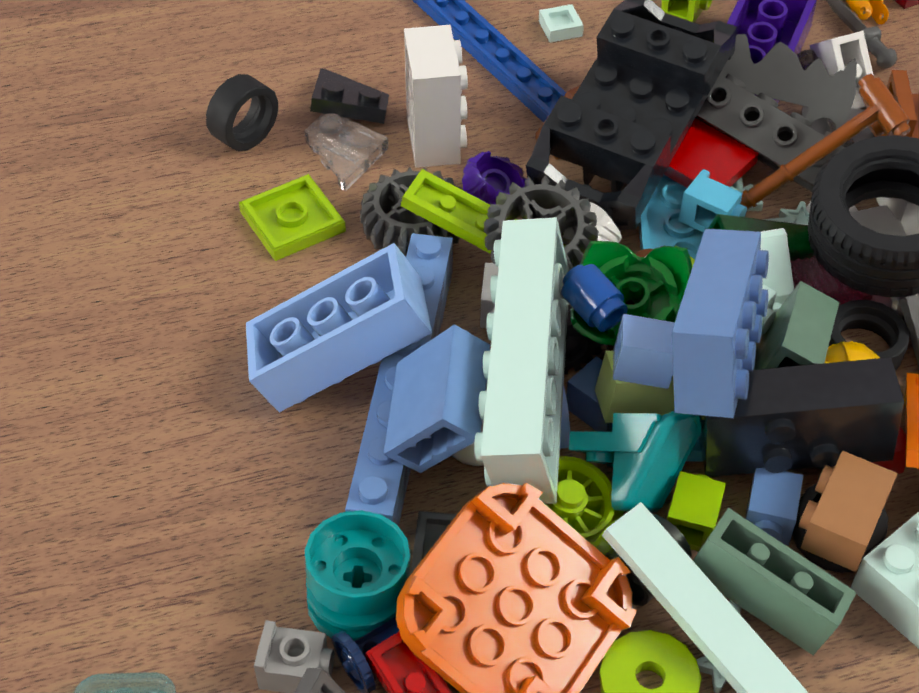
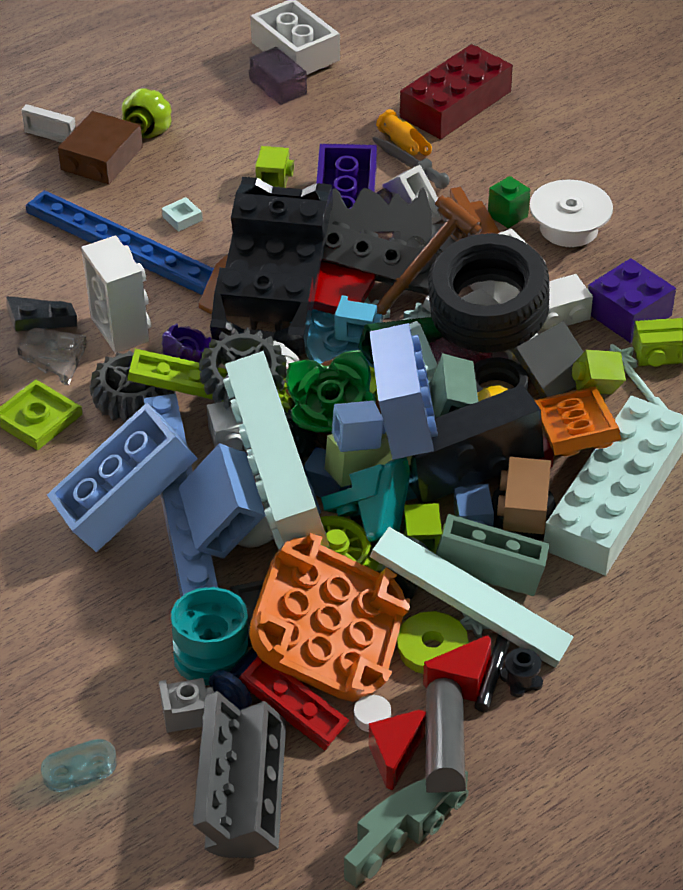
camera: 20 degrees left, 5 degrees down
(593, 297) = (306, 400): blue brick -> none

